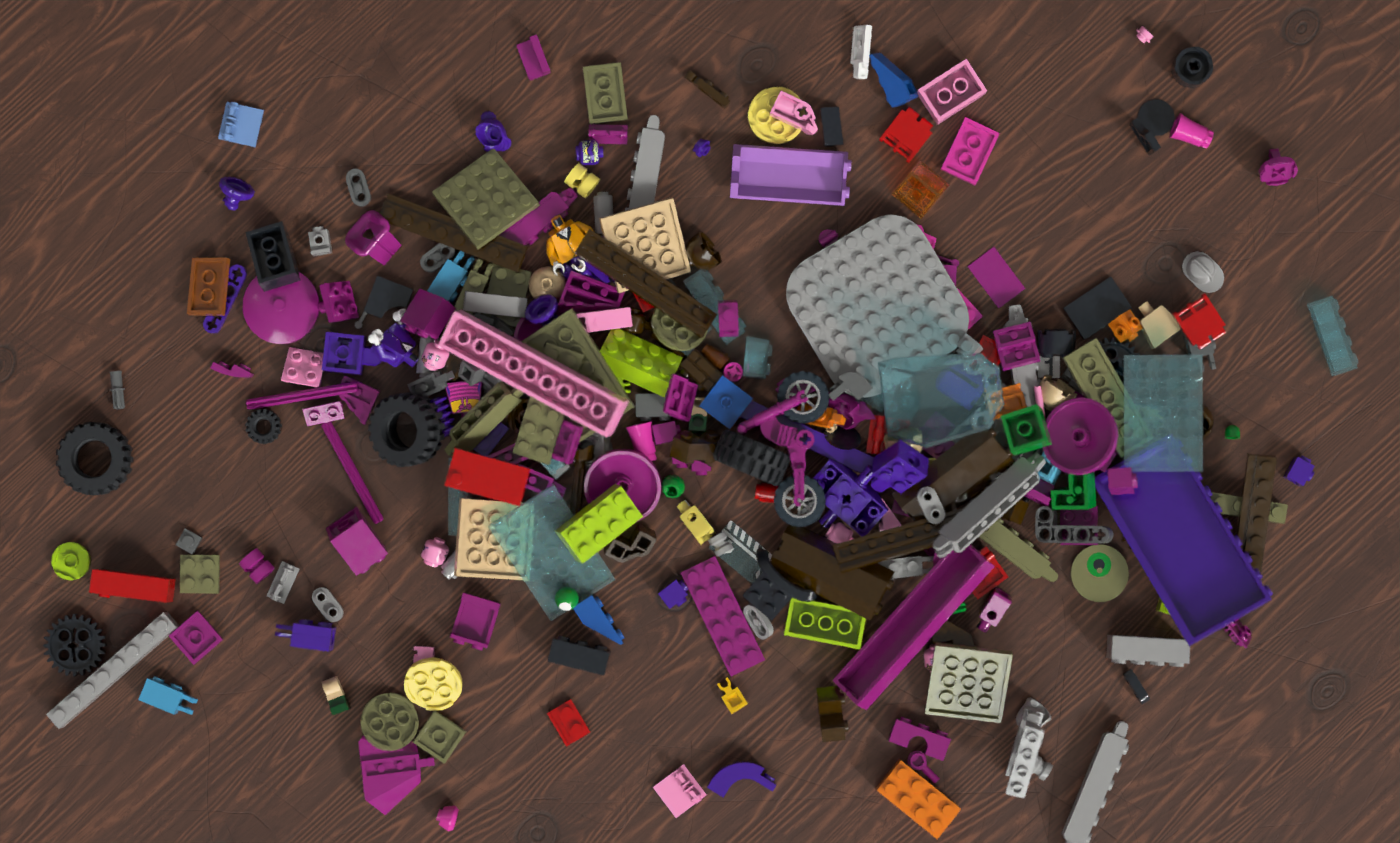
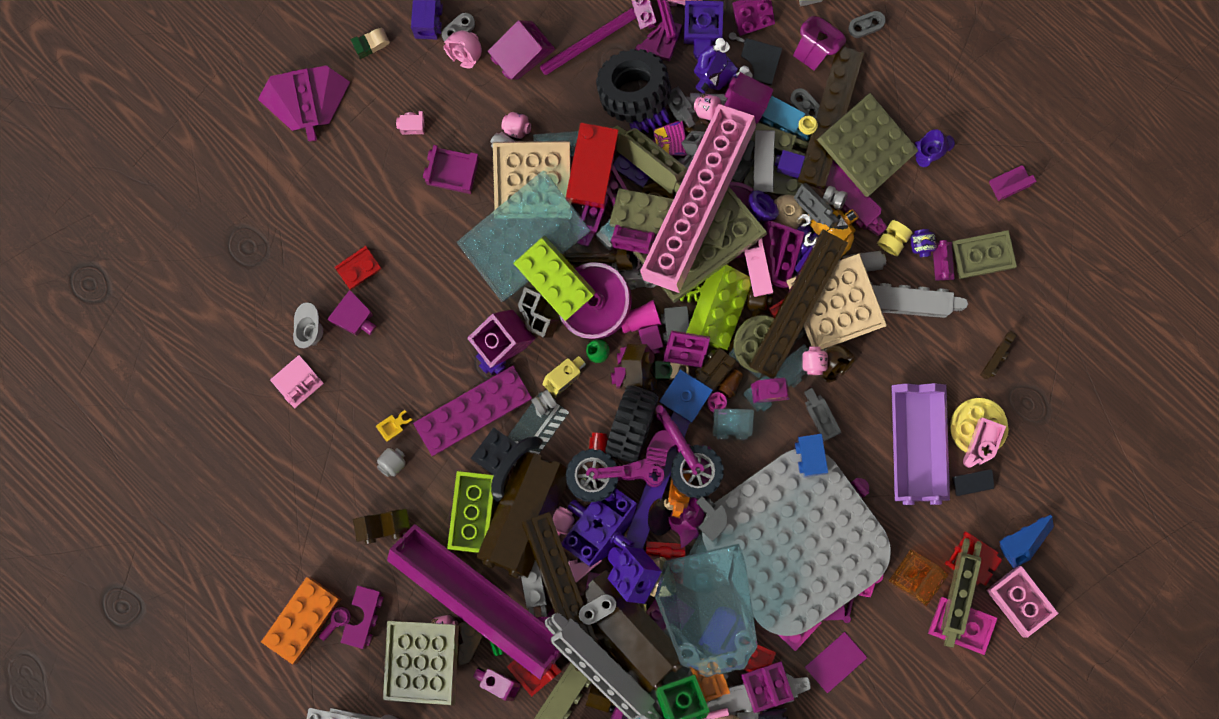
camera: 90 degrees right, 5 degrees down
(349, 599) = (464, 47): none -> bright pink cylinder
(389, 722) = (347, 94): olive tile -> none
(433, 684) = (387, 133): light yellow tile -> none
(439, 736) = (336, 144): olive plate -> none
(448, 817) = (258, 158): dark pink cone -> none
(461, 257) = (808, 125): none -> light yellow plate
(499, 279) = (789, 163): none -> dark purple brick
(540, 233) = (835, 198): none -> light grey wheel
(546, 257) = (815, 206): none -> dark grey hinge
(566, 598) = (478, 254): green piece -> none
(579, 655) = (423, 271): black brick -> none
(593, 616) = (462, 284): blue slope -> none
(618, 730) = (352, 315): none -> magenta torso
(625, 777) = (307, 326): none -> light grey piece
(653, 581) = (501, 337): none -> magenta slope
(701, 147) = (939, 354): dark purple plate -> none
(702, 271) = (815, 361): none -> bright pink head
(739, 770) = (319, 439): dark purple arch -> none
(754, 269) = (821, 415): none -> dark grey hinge
(758, 621) = (468, 446): light grey plate -> none
(768, 700) = (391, 462): none -> light grey head
(796, 283) = (812, 455): none -> blue brick
(861, 50) = (1053, 506): white hinge -> none
(940, 150) = (961, 593): none -> olive hinge
(968, 345) = (764, 637): light grey brick -> none

